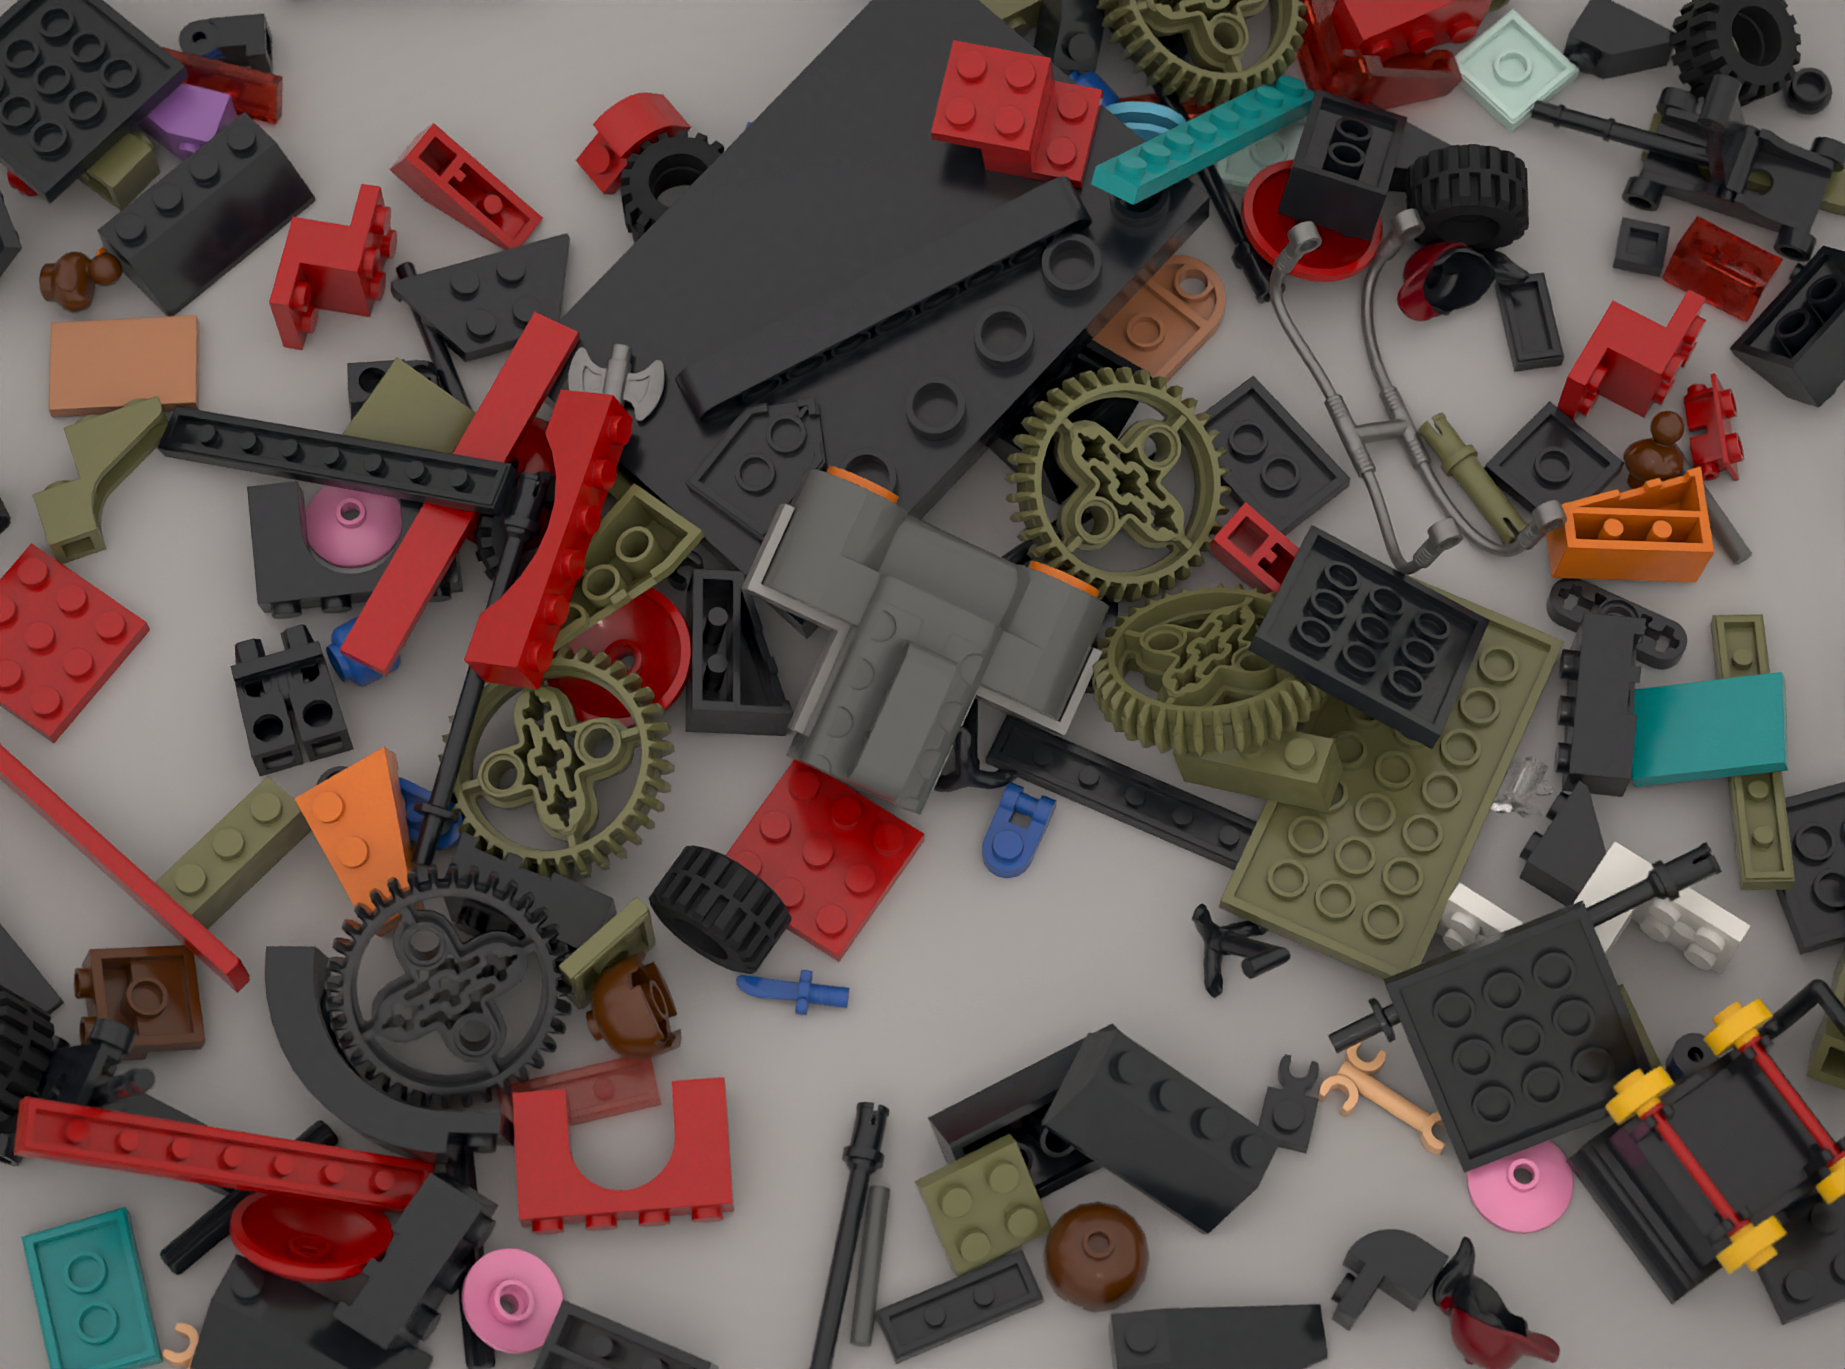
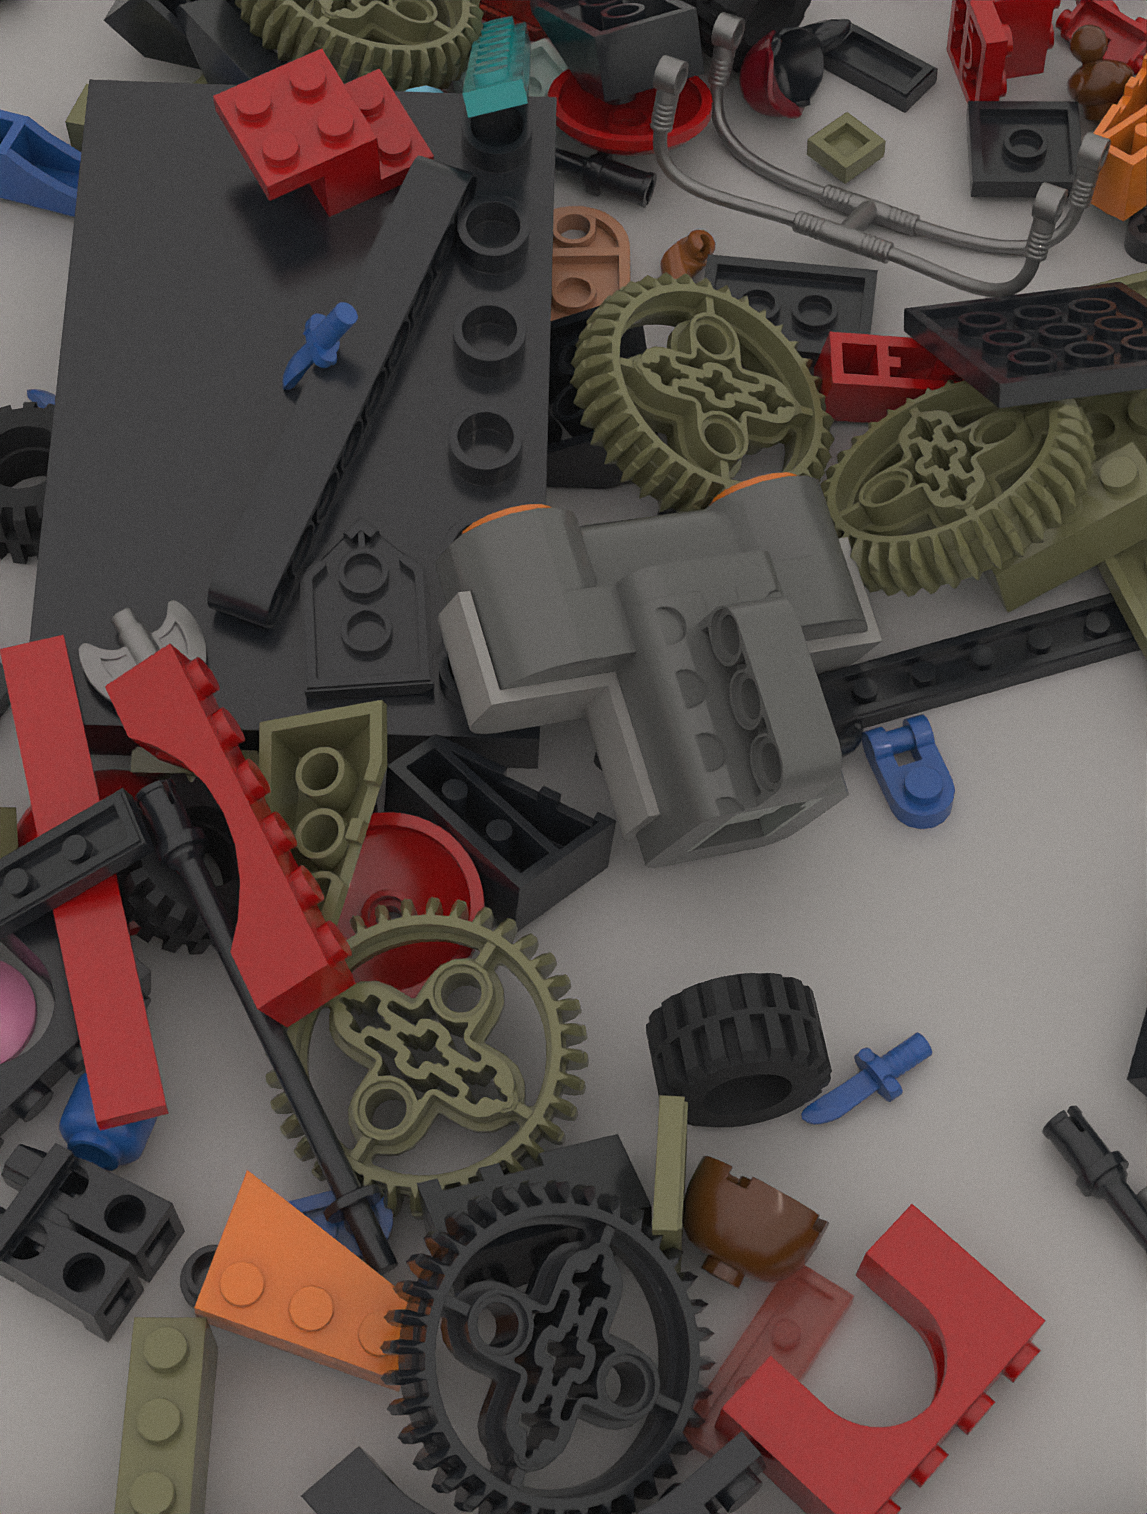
camera: 40 degrees left, 10 degrees down
(825, 855) = (764, 914): red plate -> none
(880, 263) = (321, 343): none -> blue piece
(1236, 367) = (688, 254): none -> dark orange arm
(1434, 368) = (846, 147): none -> olive plate
(1461, 463) = (960, 200): olive pin -> none

